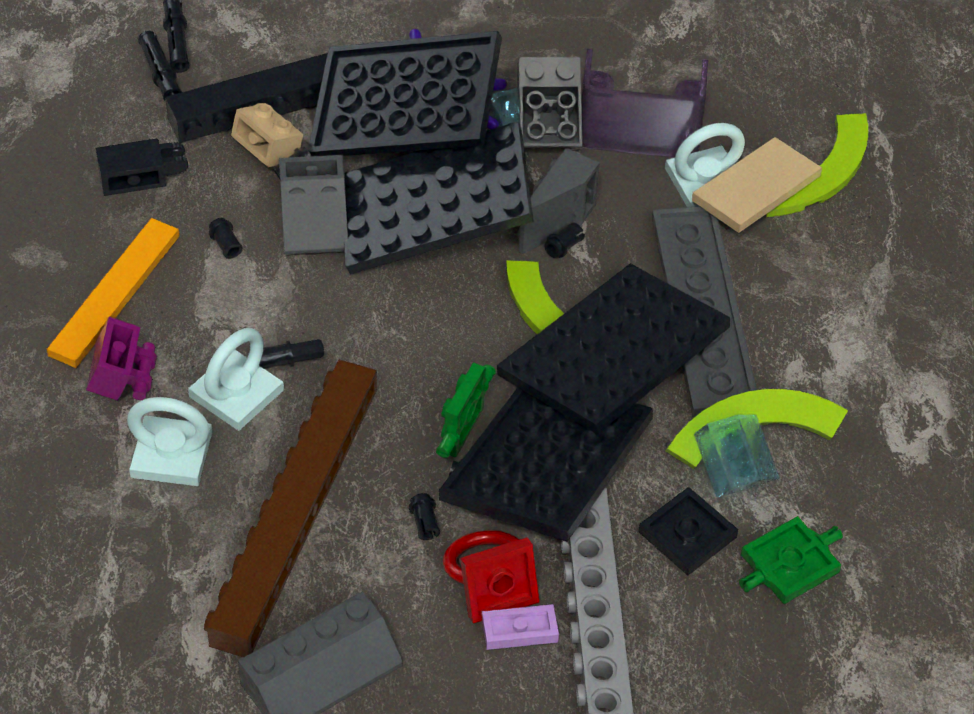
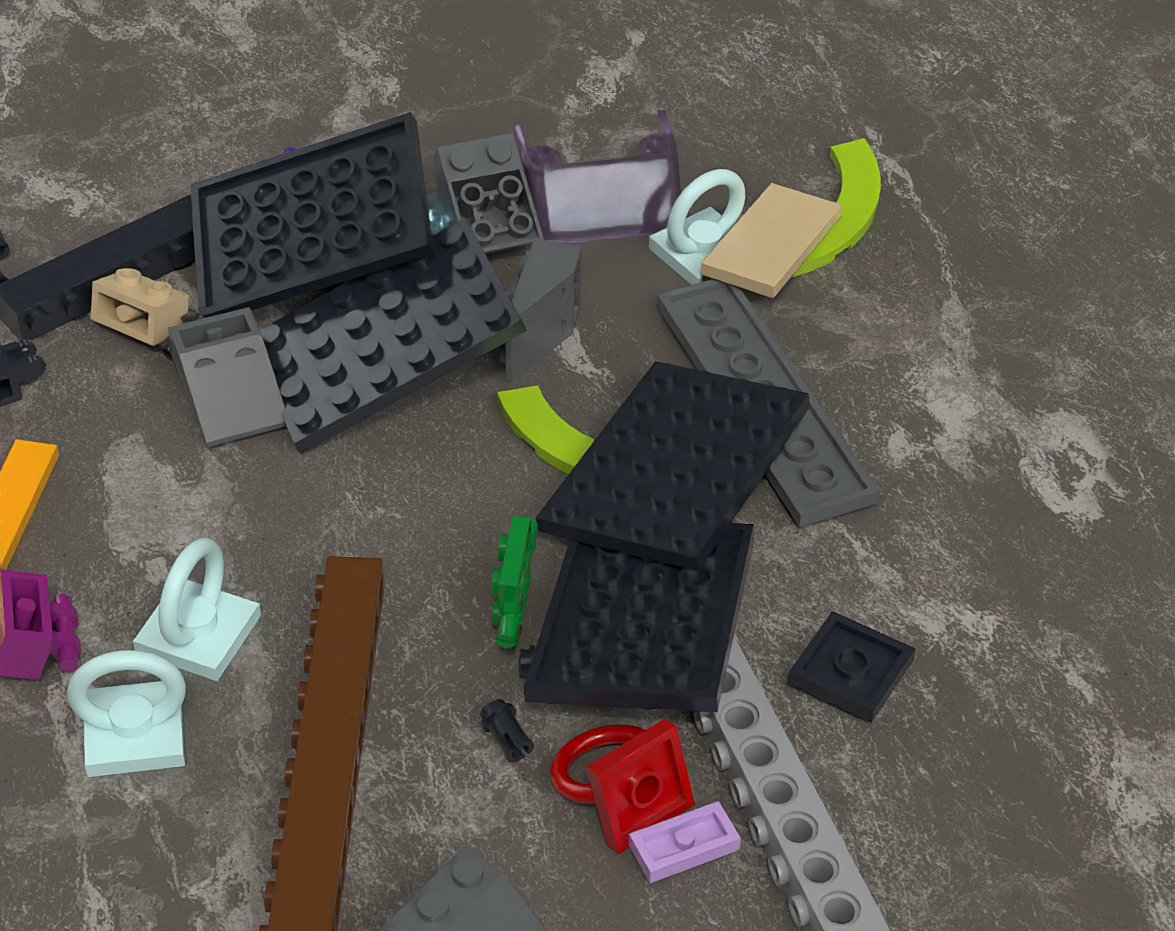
camera: 15 degrees left, 5 degrees down
(221, 231) = (115, 436): black pin -> none
(291, 353) = (260, 564): black axle -> none
(559, 243) = (555, 360): black pin -> none
(736, 454) = (875, 558): clear light blue slope -> none
(770, 406) = (874, 499): lime tile -> none
(791, 559) = (993, 670): green plate -> none

